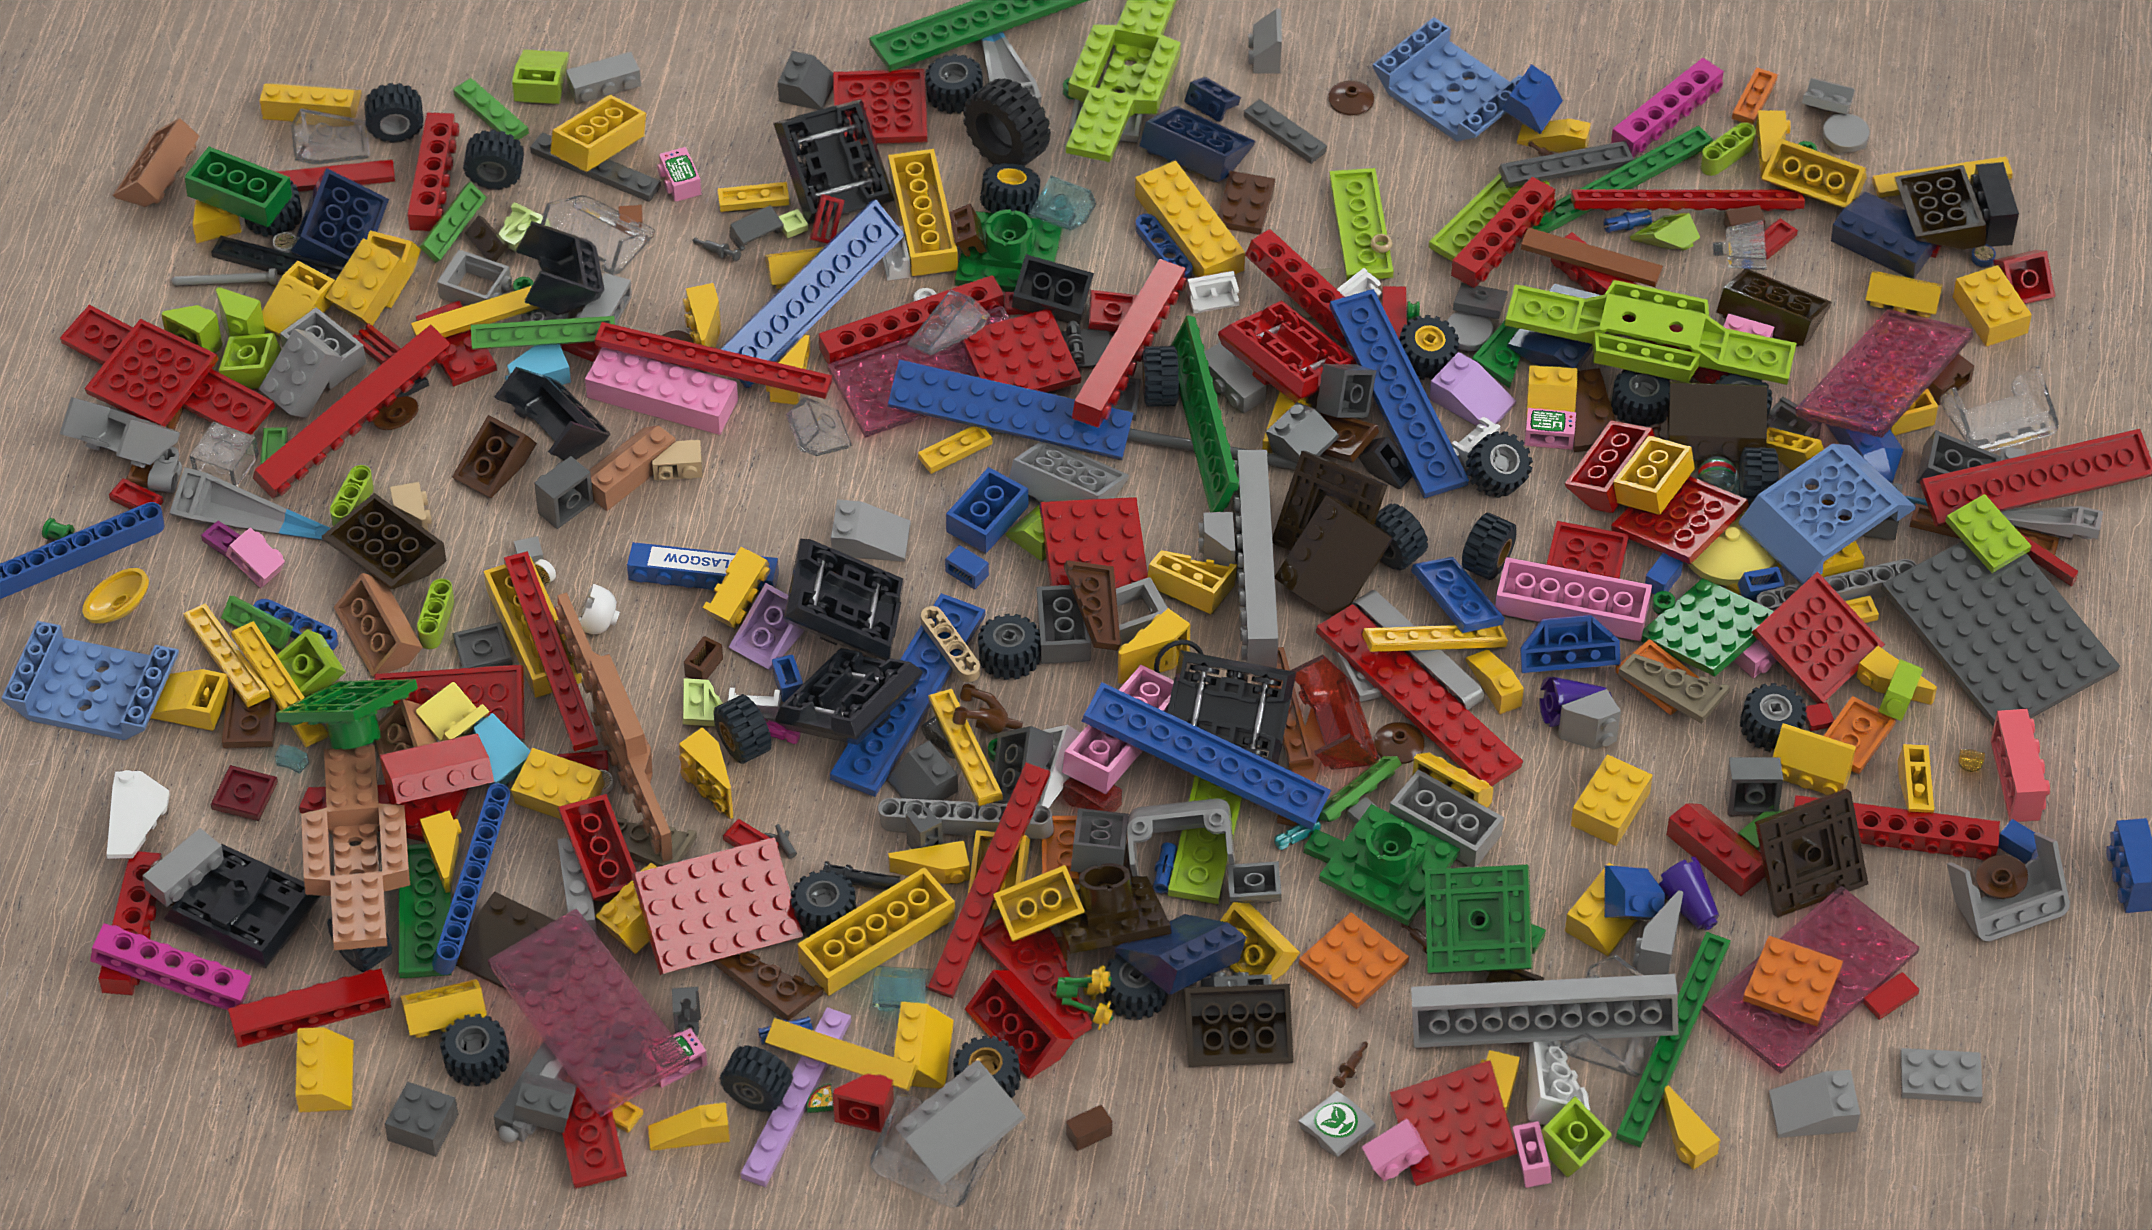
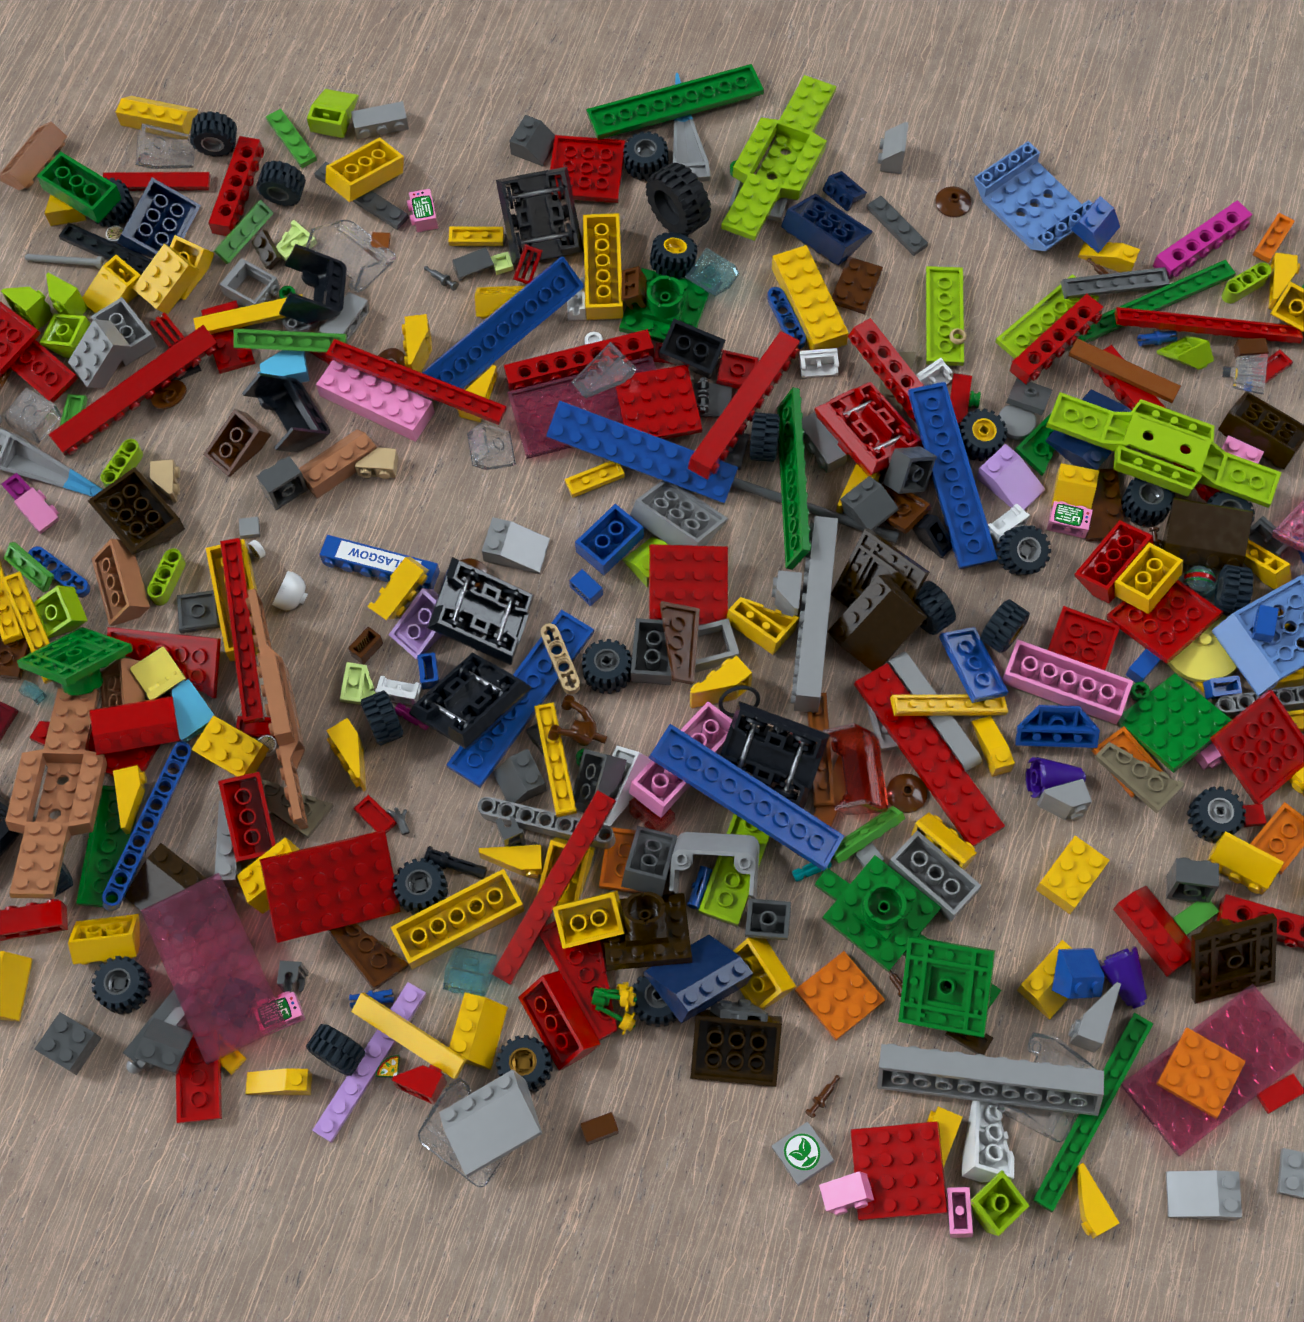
camera: 10 degrees right, 15 degrees up
(1796, 497) = (1265, 623): none -> blue piece

